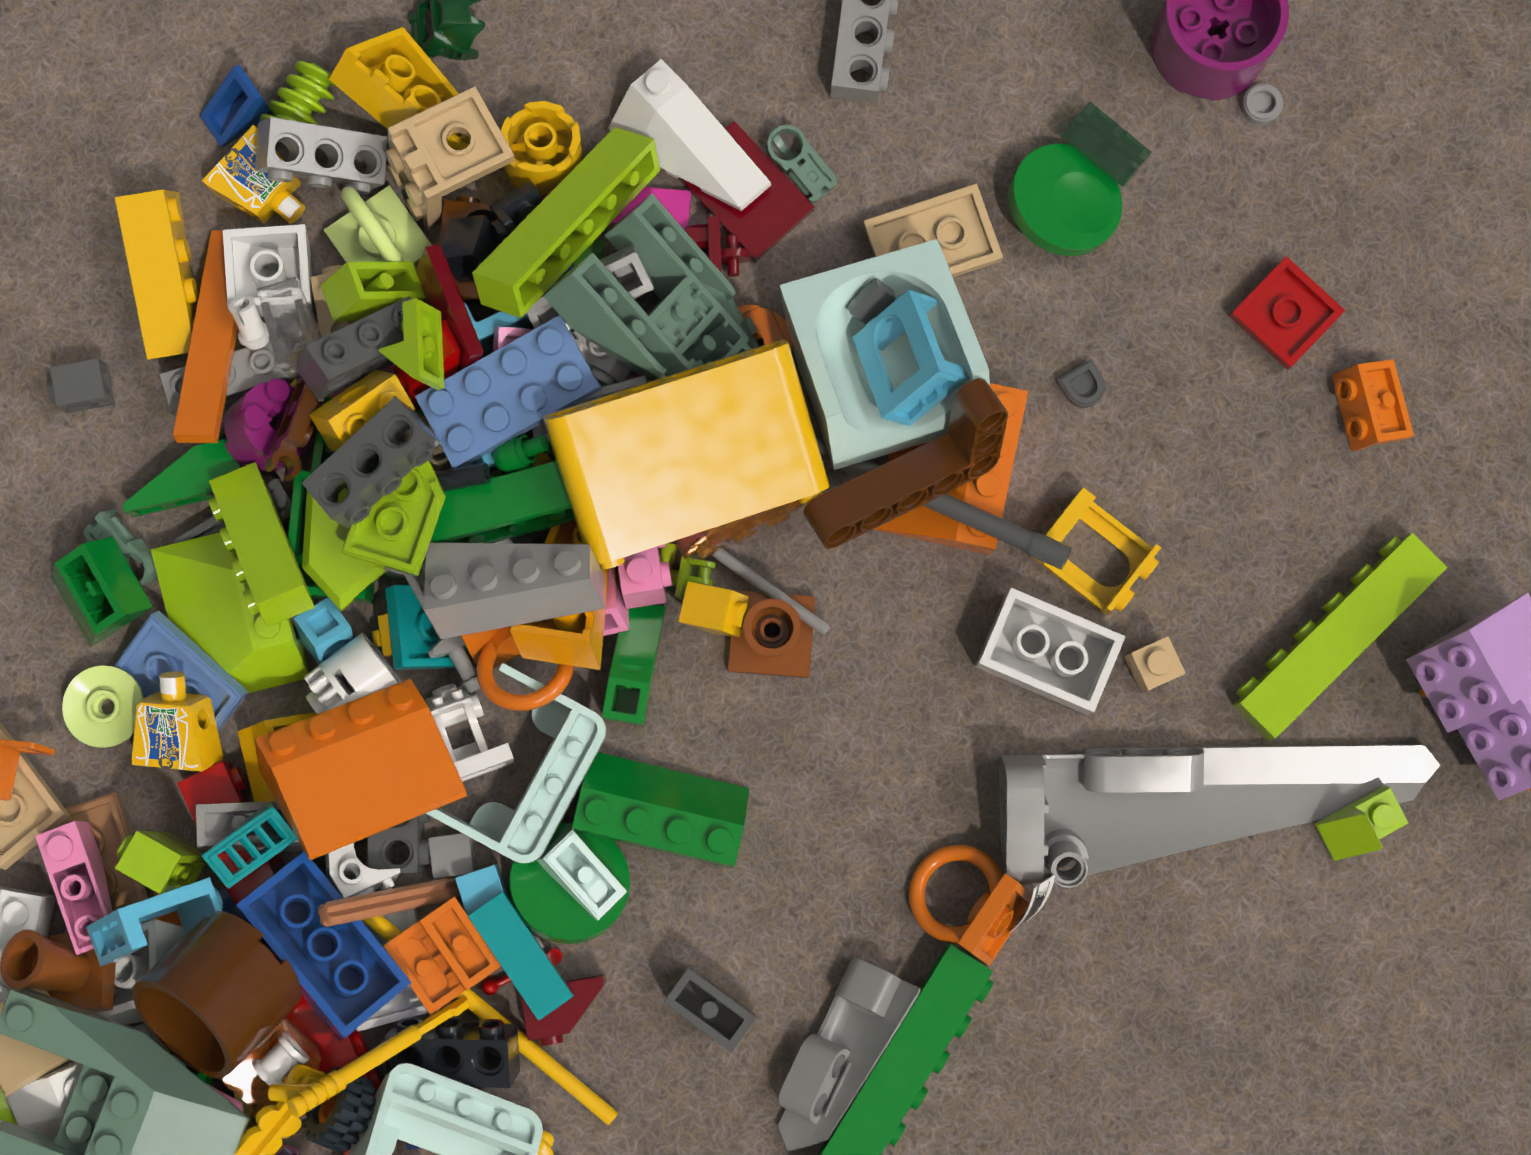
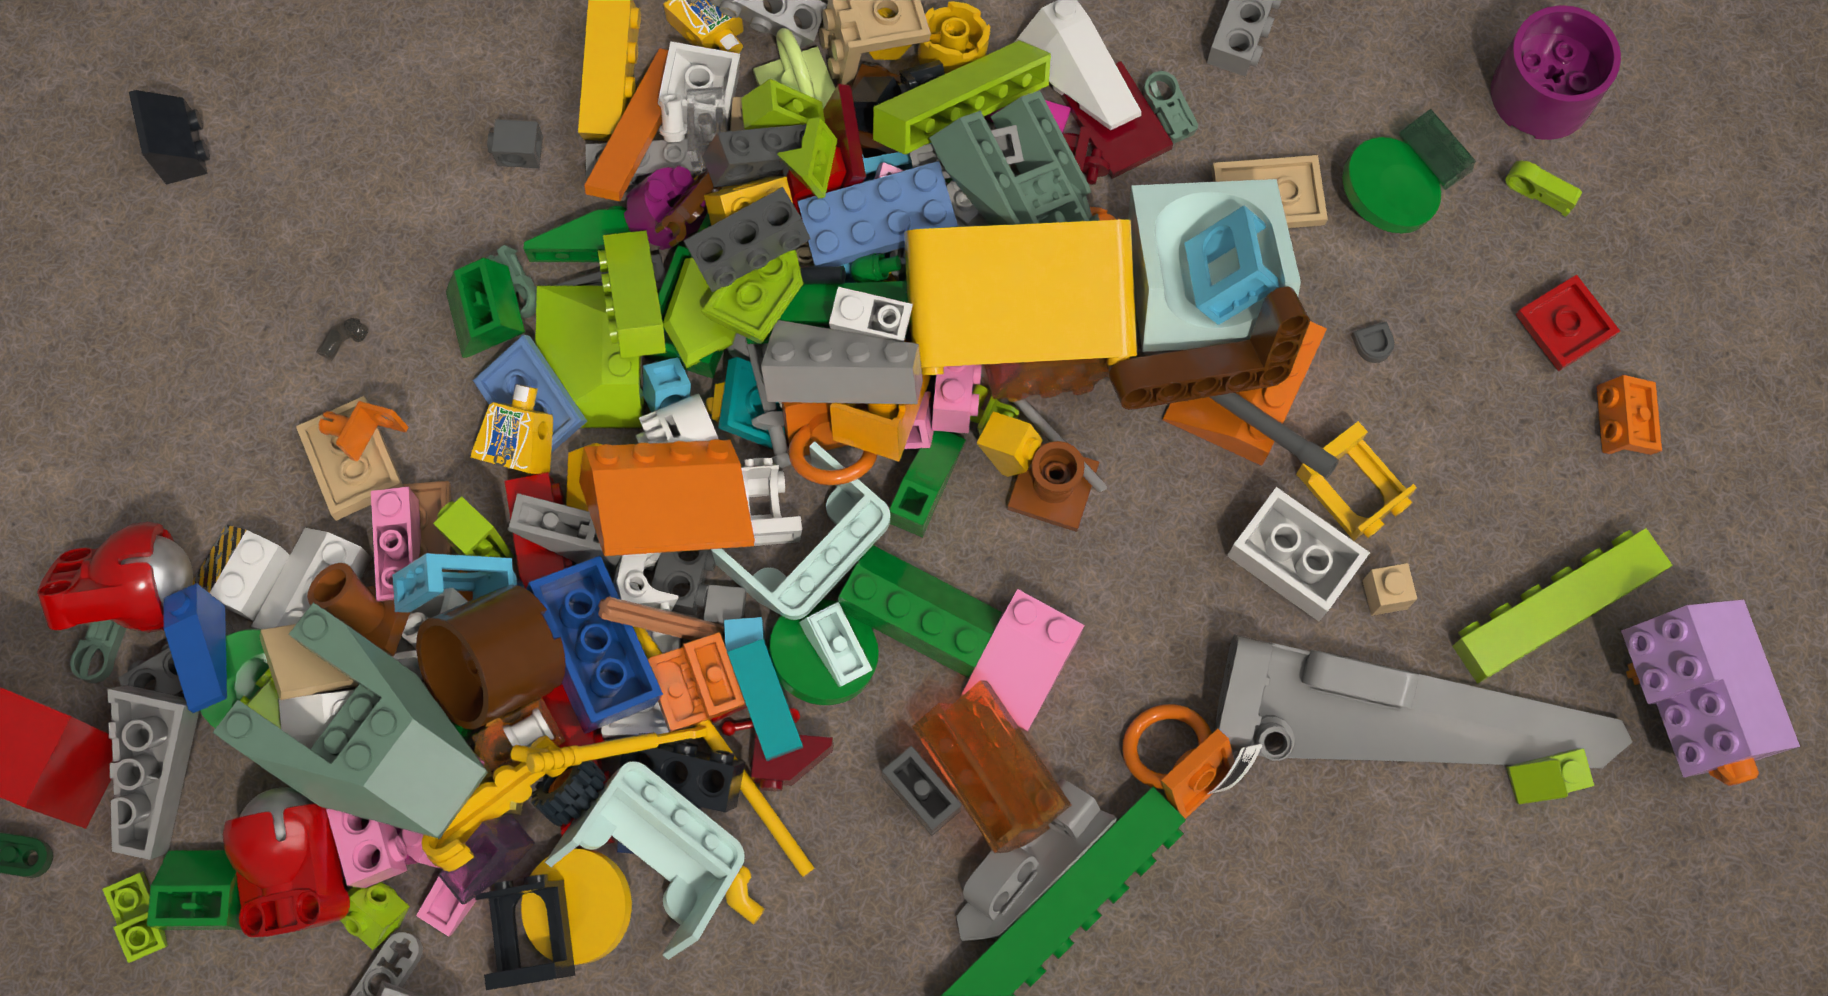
camera: 15 degrees right, 10 degrees down
(84, 703) = (447, 395): yellowish green dish -> none
(285, 838) = (584, 523): teal slope -> none
(529, 522) = (870, 315): none -> white slope
(777, 968) = (992, 768): none -> clear orange brick
(783, 838) = (1026, 656): none -> bright pink slope
(871, 301) = (1207, 215): dark grey tile -> none
(1222, 158) = (1543, 186): none -> lime piece
(1262, 104) = (1578, 150): light grey tile -> none

